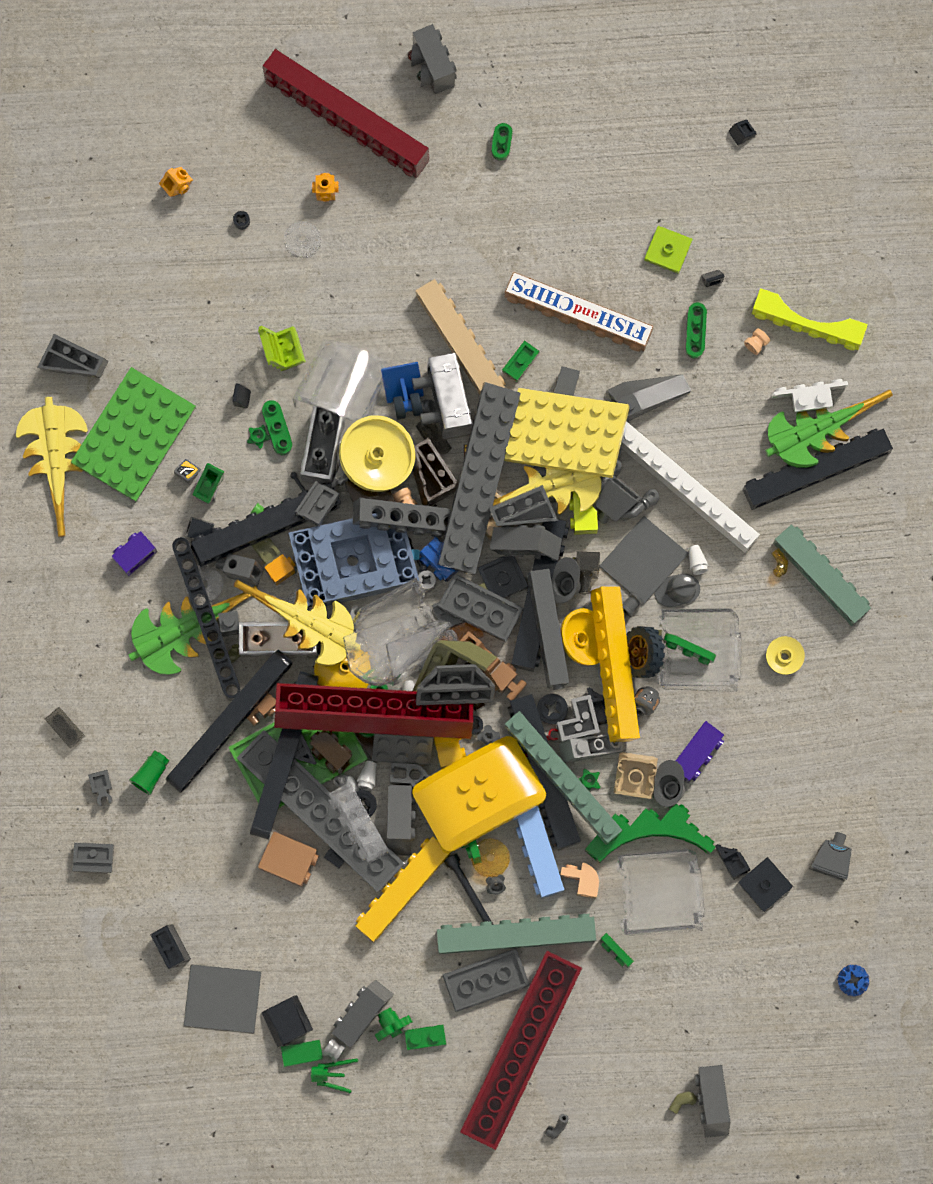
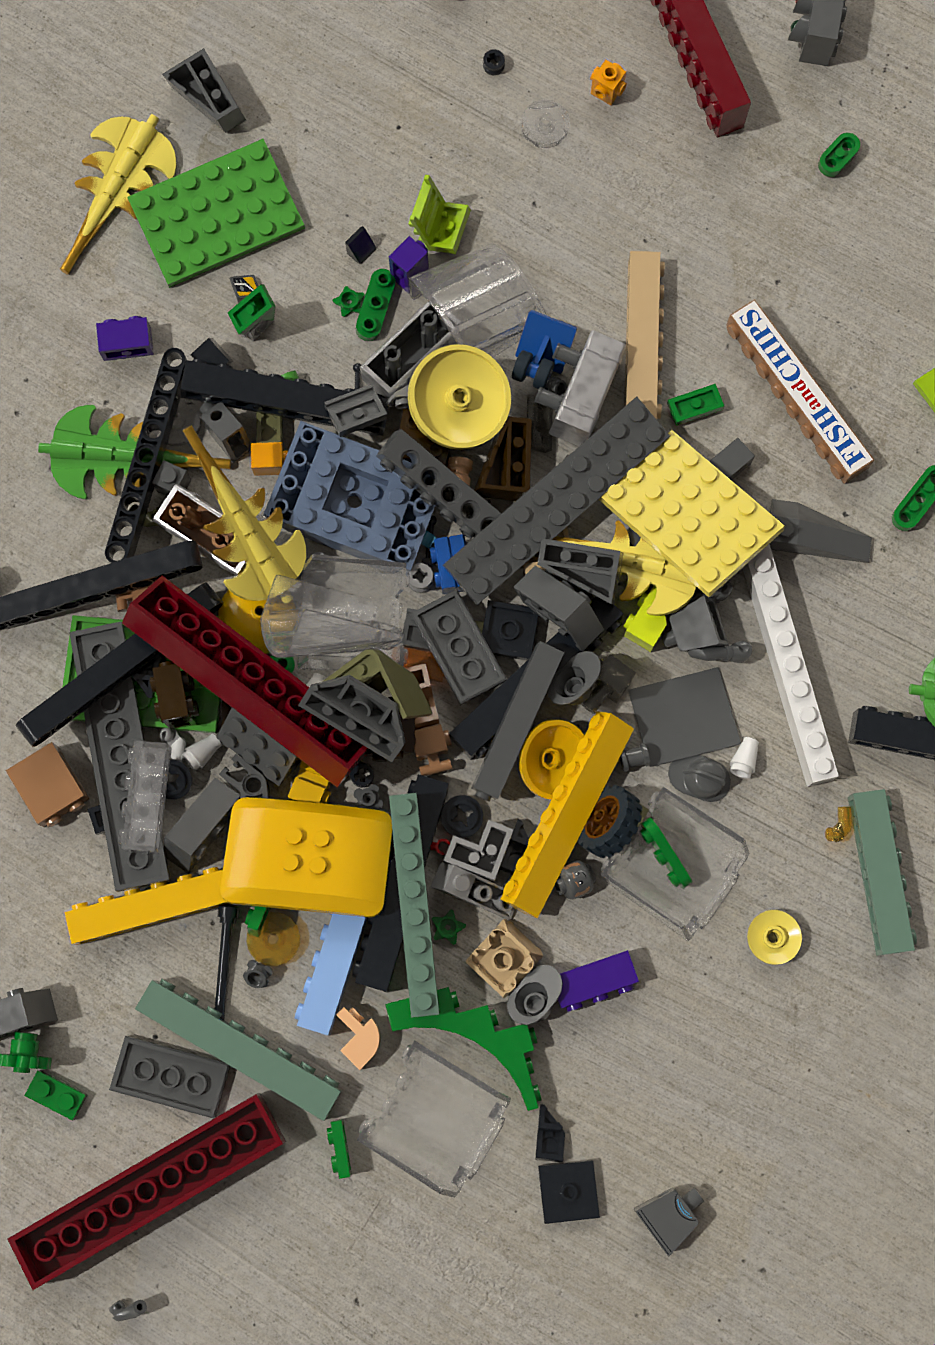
camera: 35 degrees right, 0 degrees up
(283, 388) = (408, 260): none -> dark purple brick

